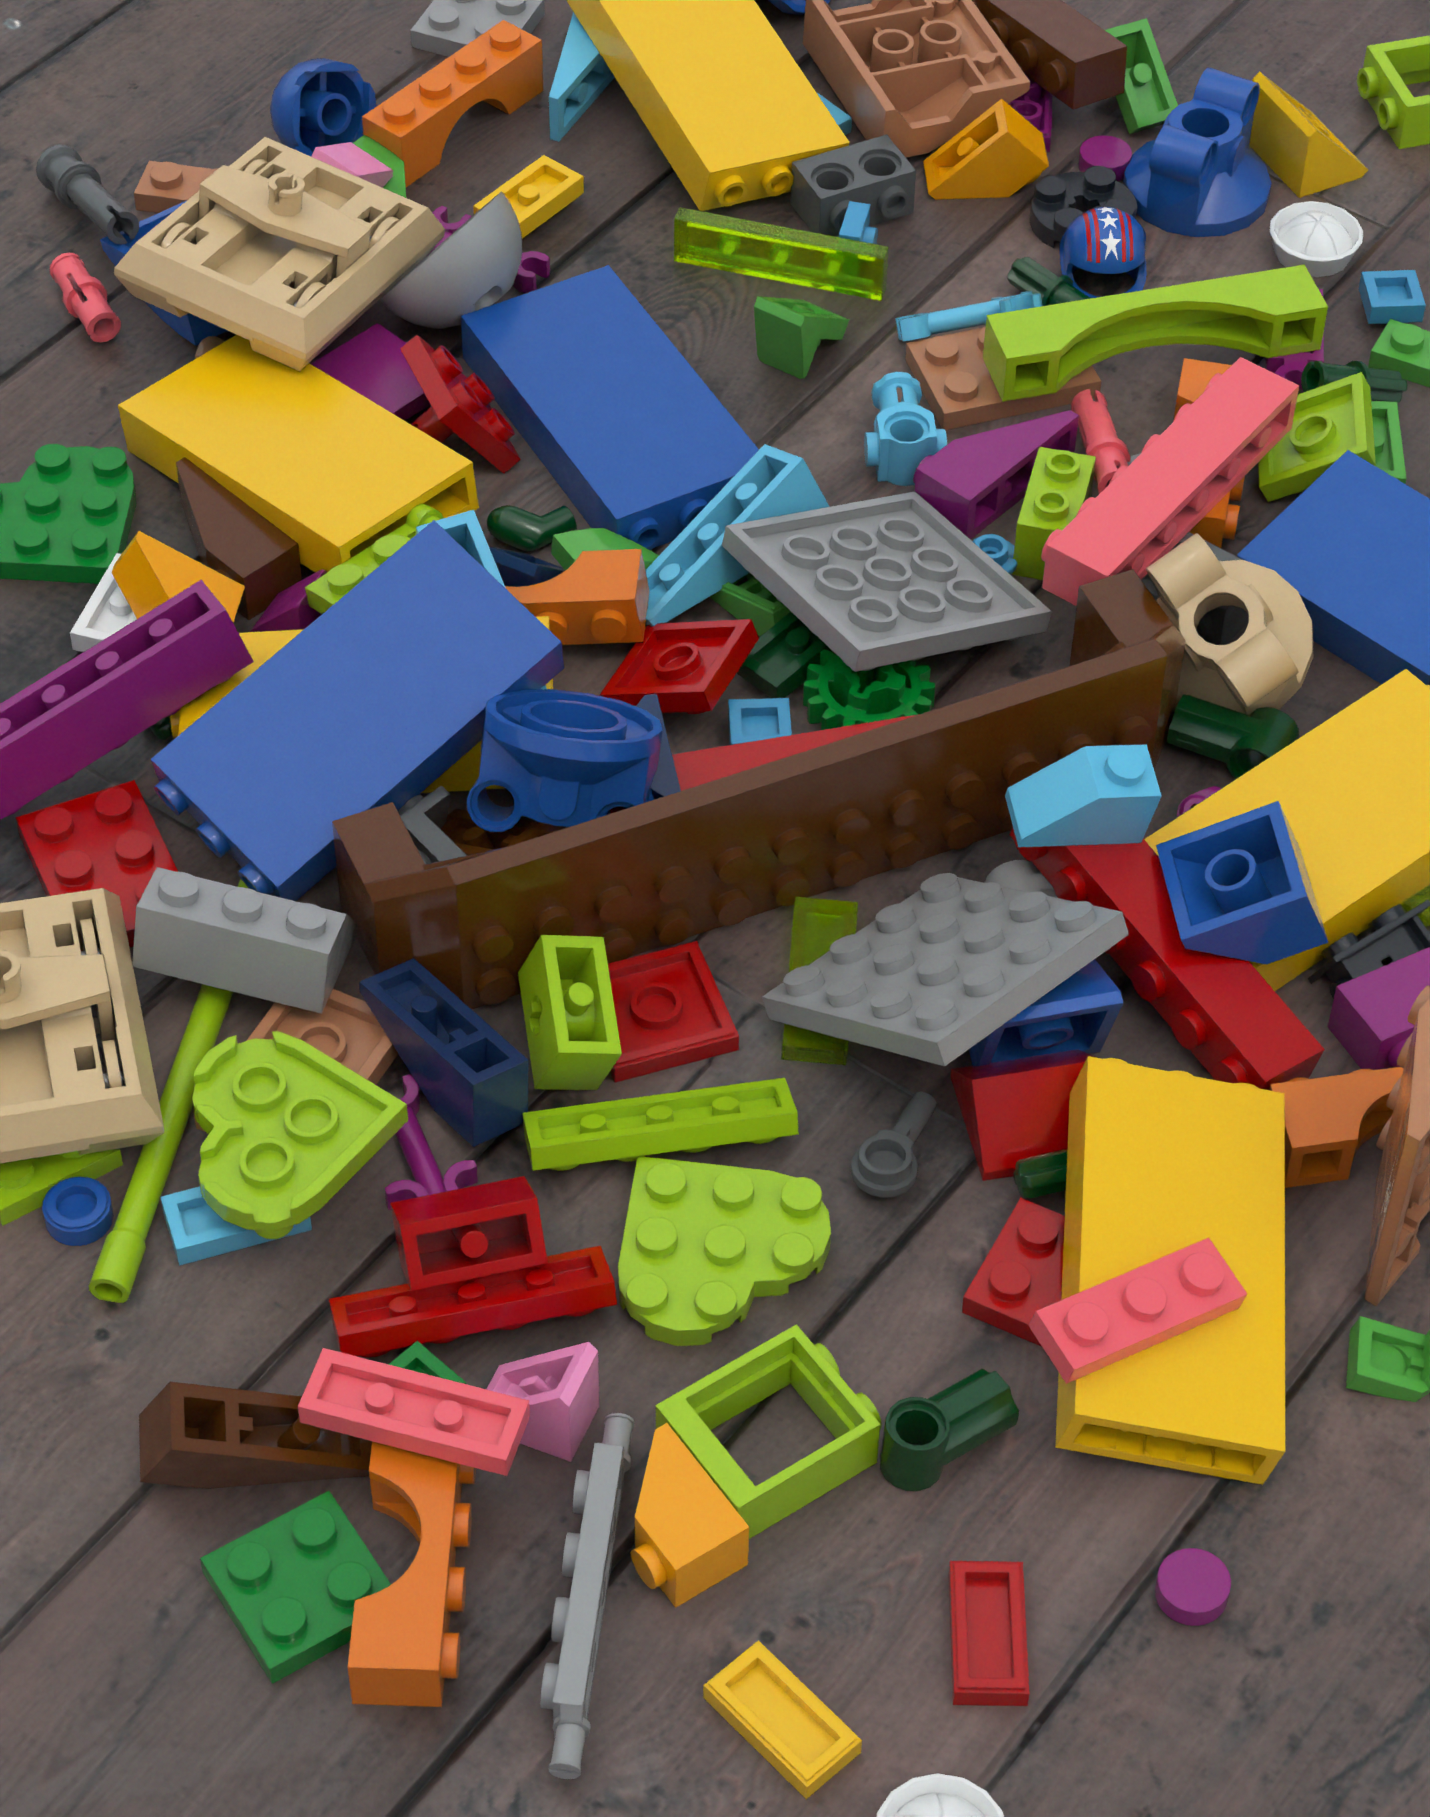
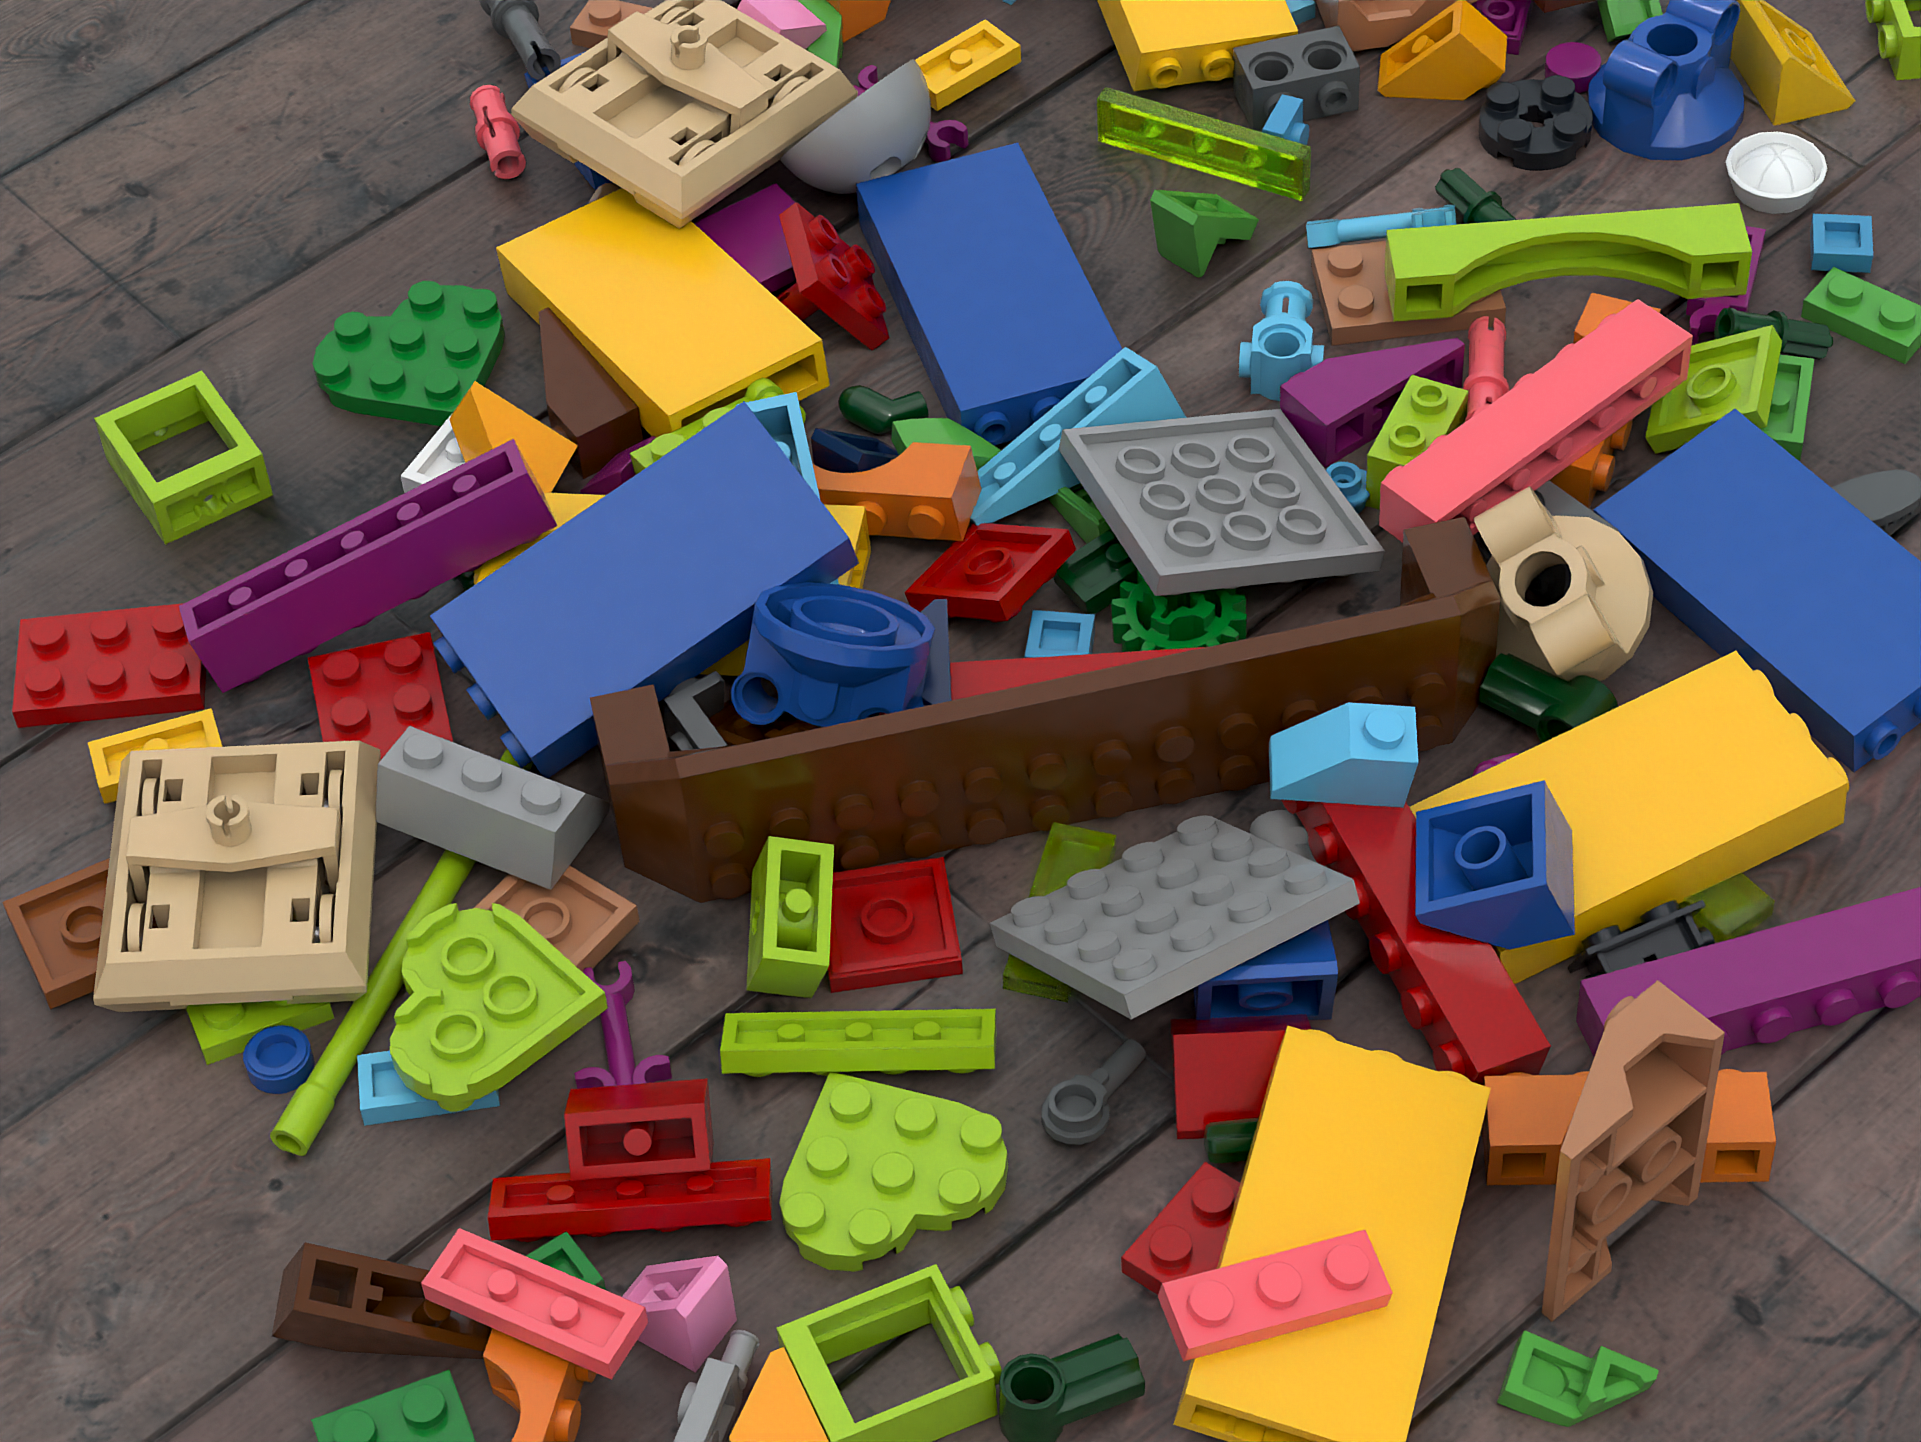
camera: 15 degrees right, 0 degrees up
(453, 1054) = (665, 942): dark blue slope -> none
(1105, 243) = (1541, 162): blue helmet -> none

